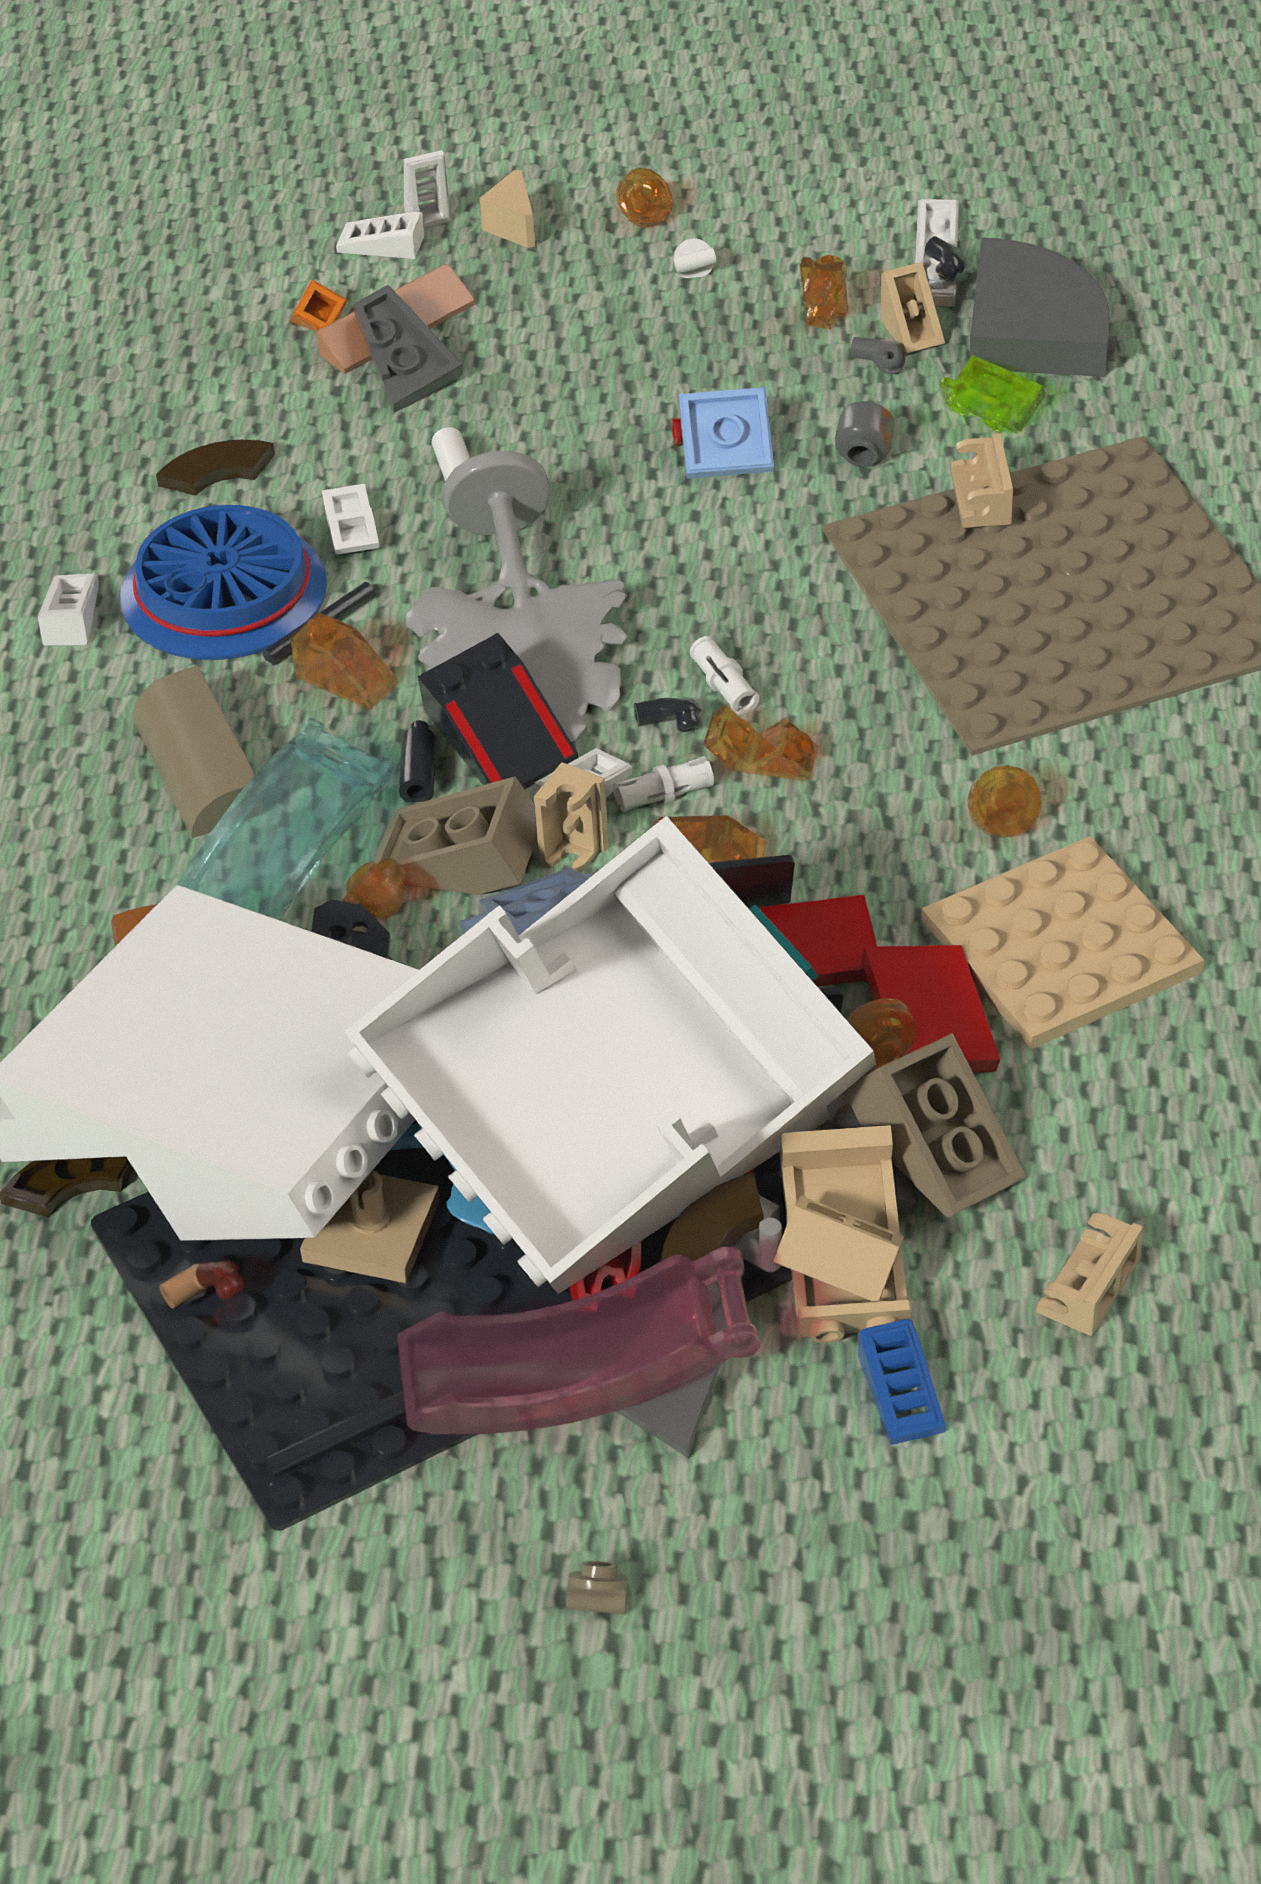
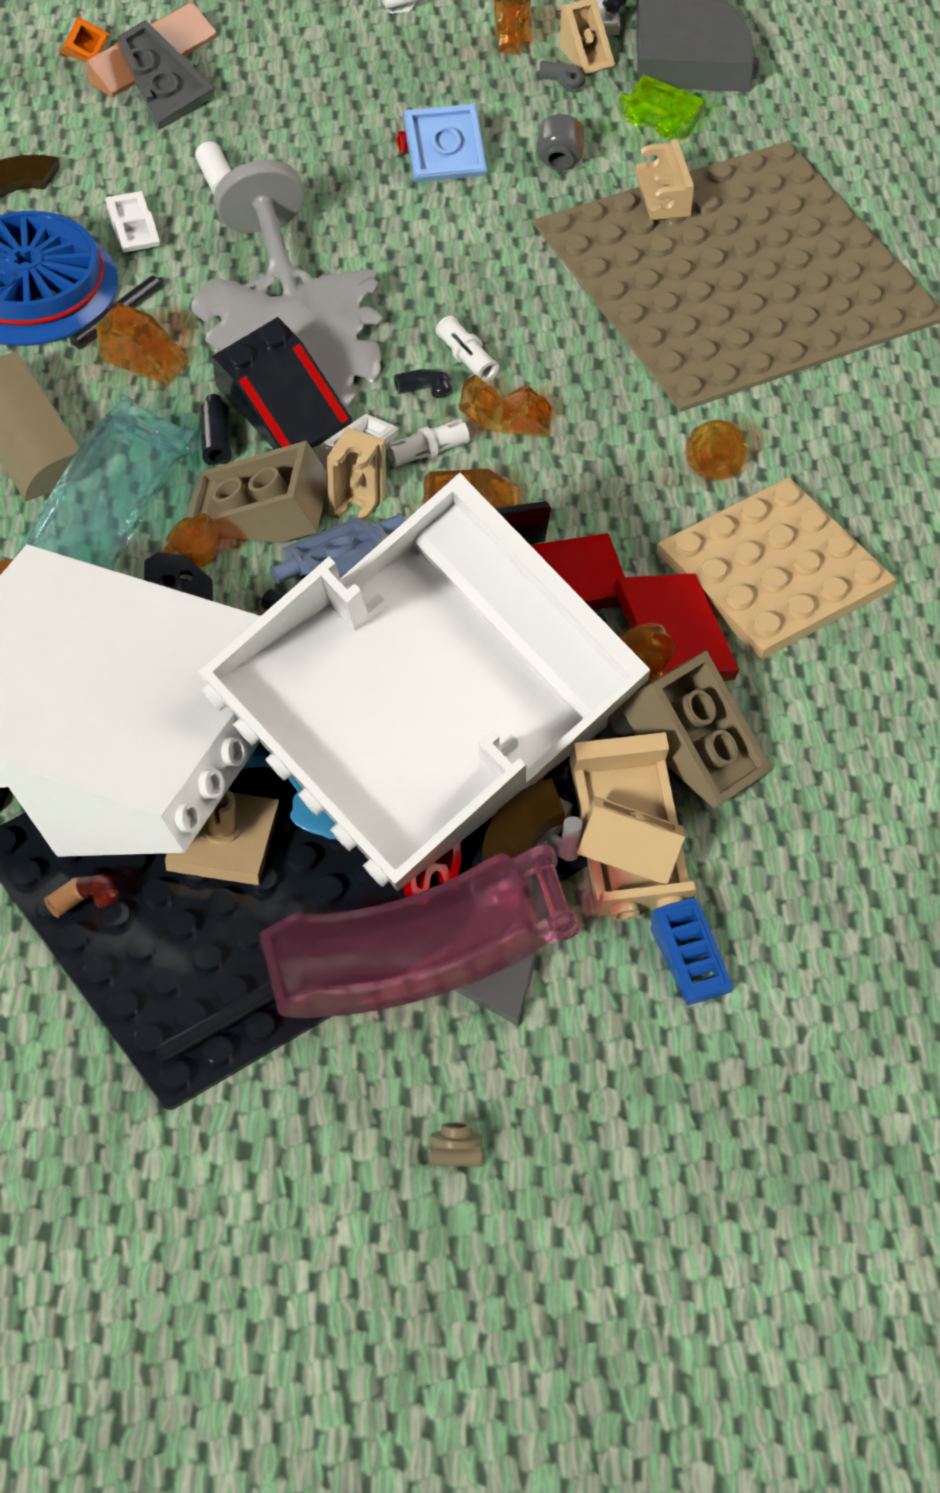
camera: 10 degrees left, 5 degrees up
(1093, 1274) = (838, 850): tan hinge -> none

